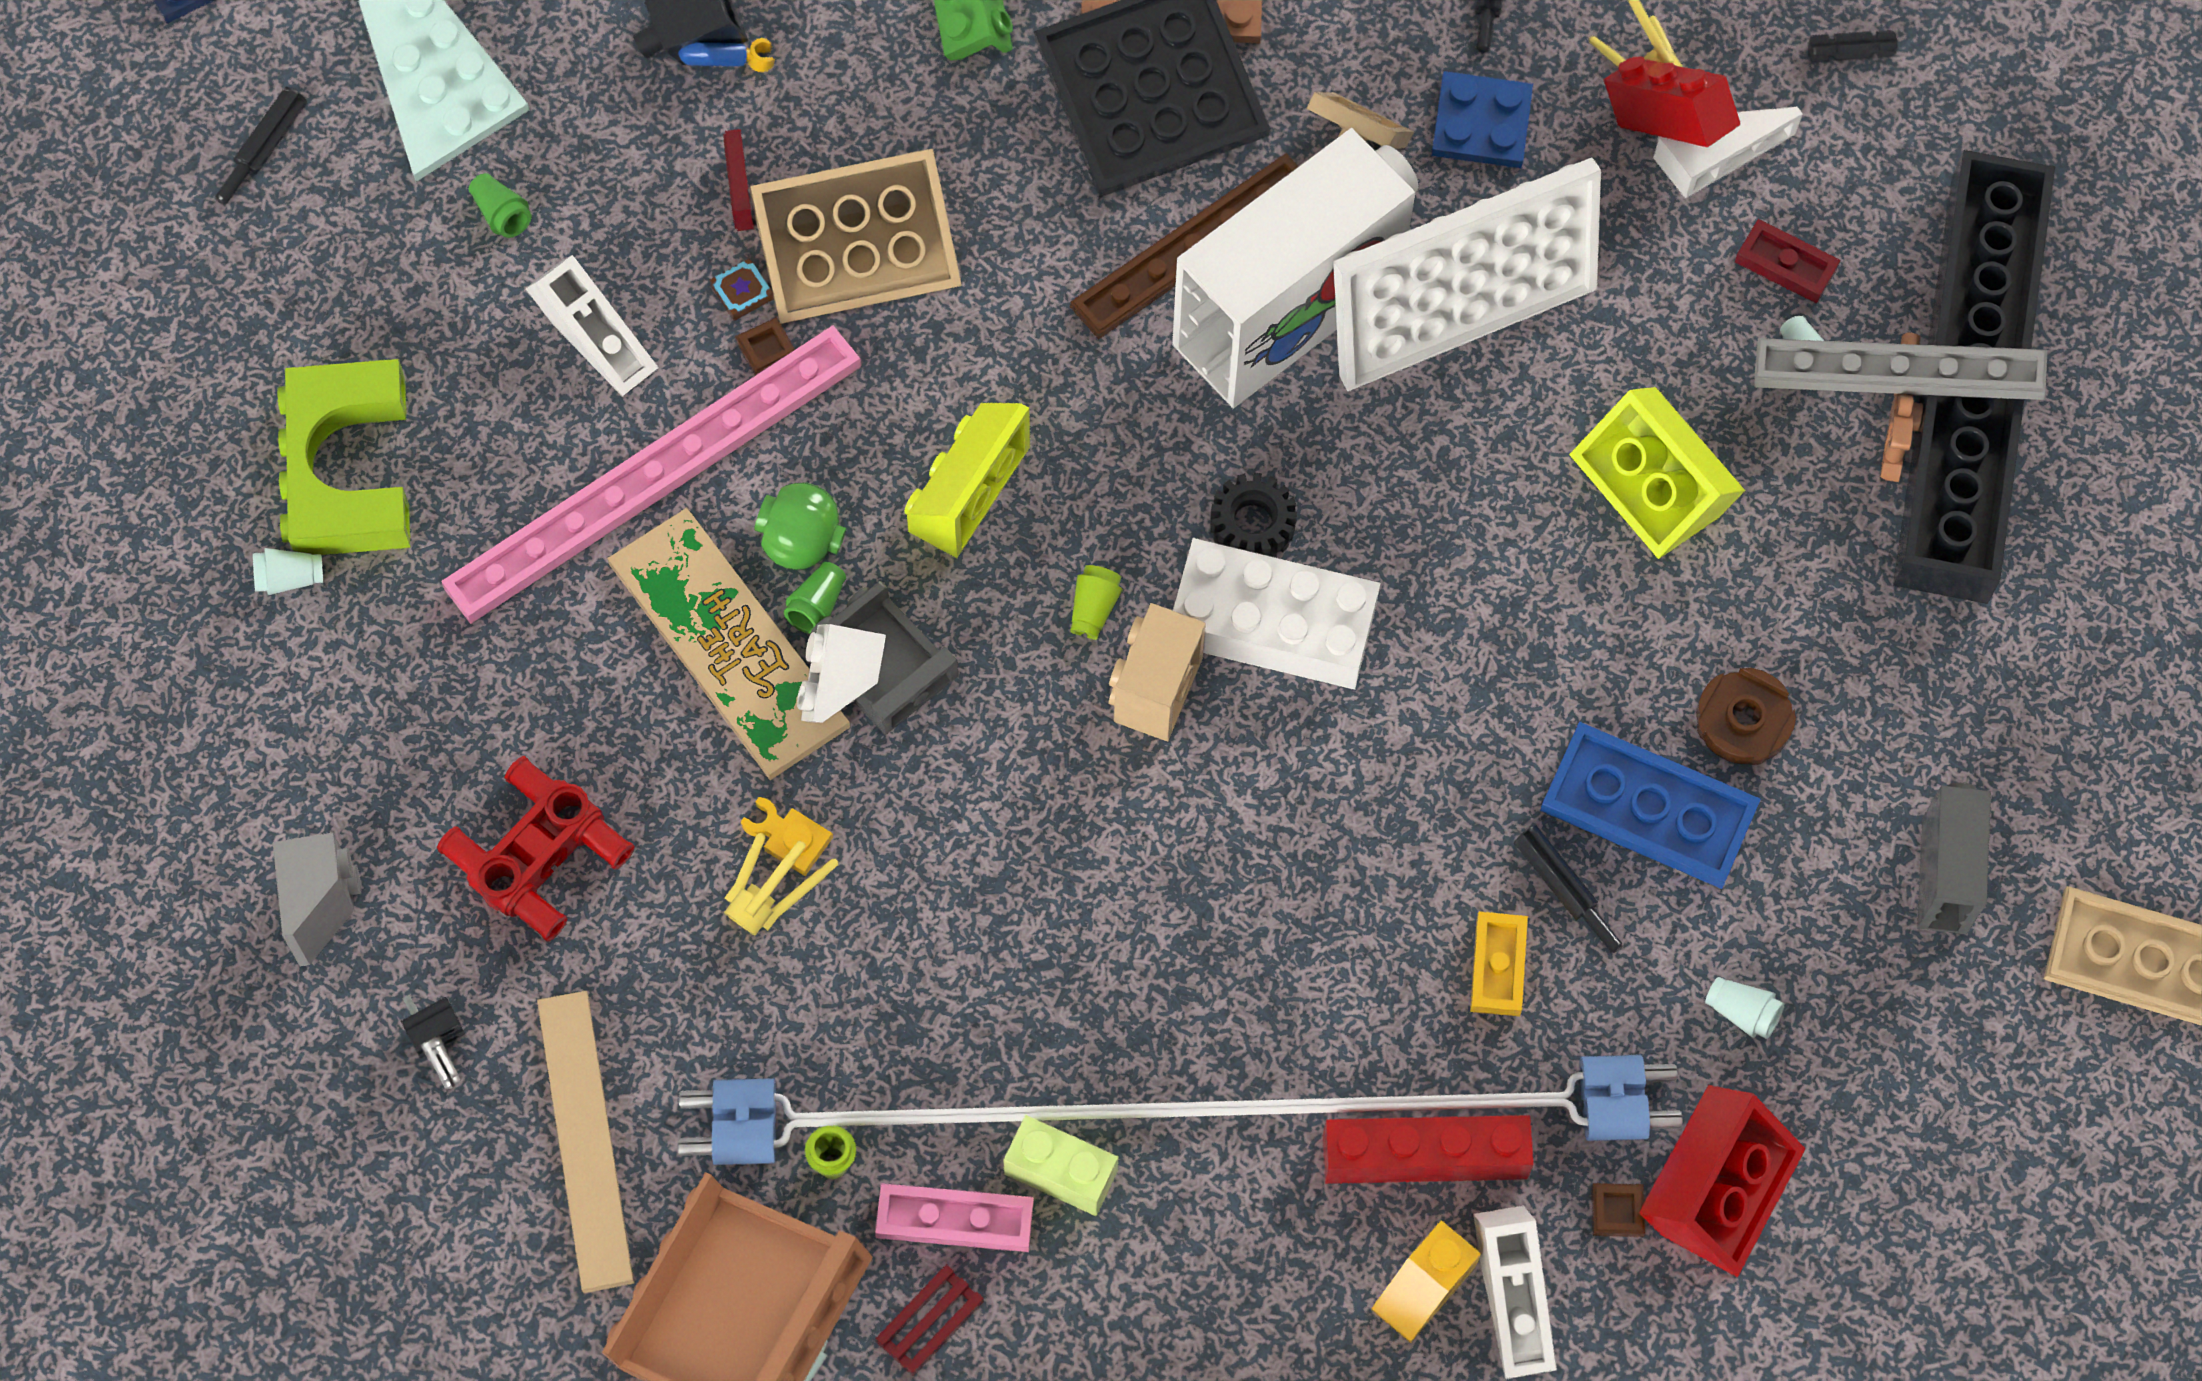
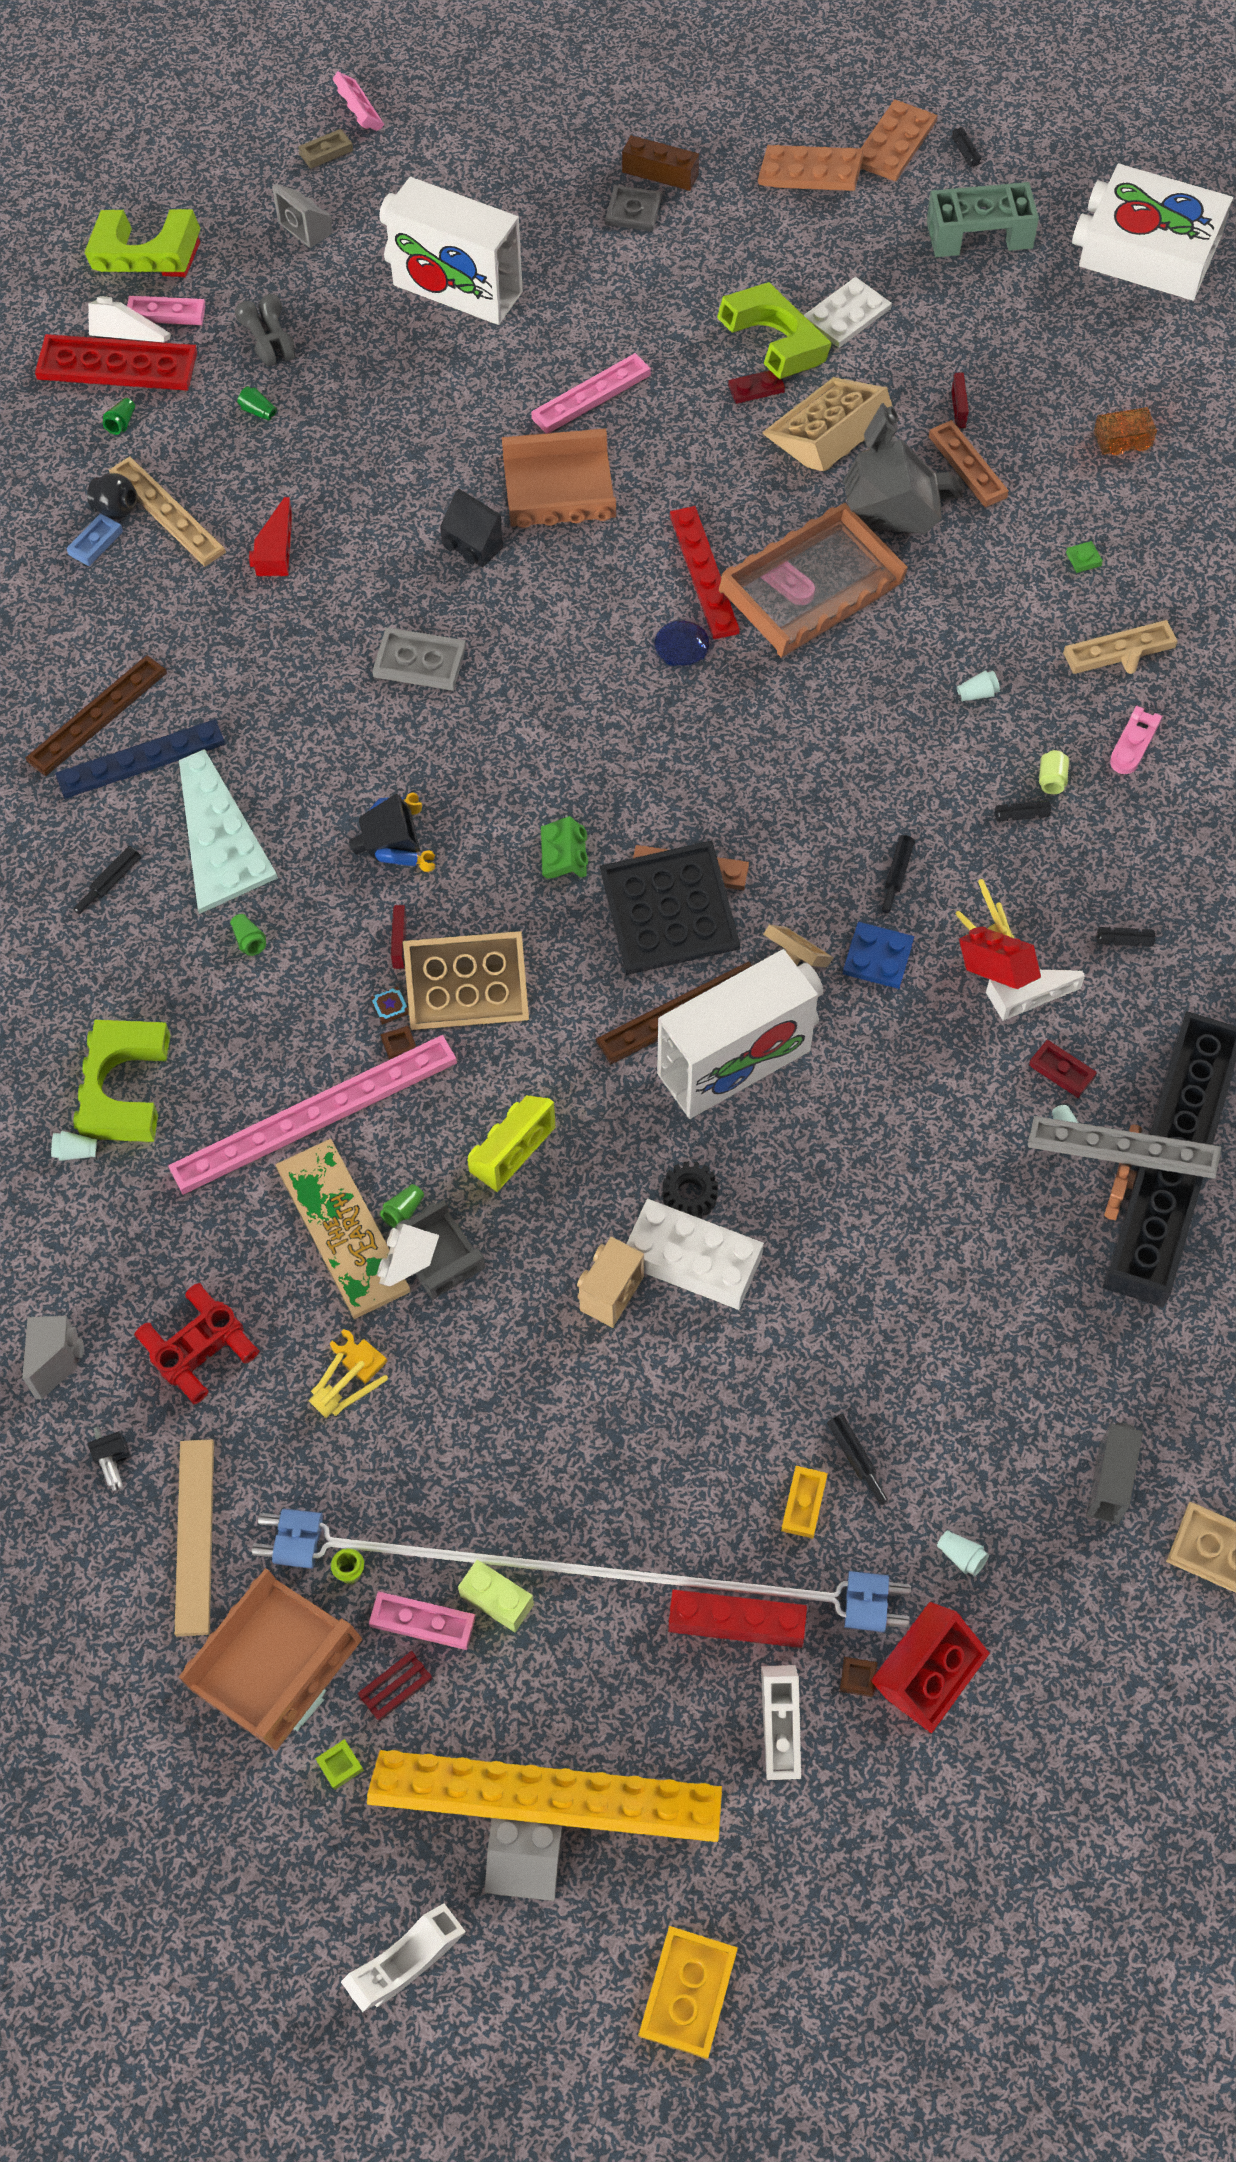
camera: 10 degrees right, 5 degrees down
(591, 324) = (291, 1016): white slope -> none
(799, 526) = (399, 1159): bright green plant -> none
(1094, 600) = (579, 1230): lime cone -> none
(1426, 1281) = (723, 1706): yellow slope -> none
(1467, 274) = (849, 1051): white plate -> none
(1650, 805) = (920, 1410): blue plate -> none
(1656, 470) = (956, 1193): neon yellow slope -> none
(1736, 741) = (992, 1378): reddish brown plate -> none

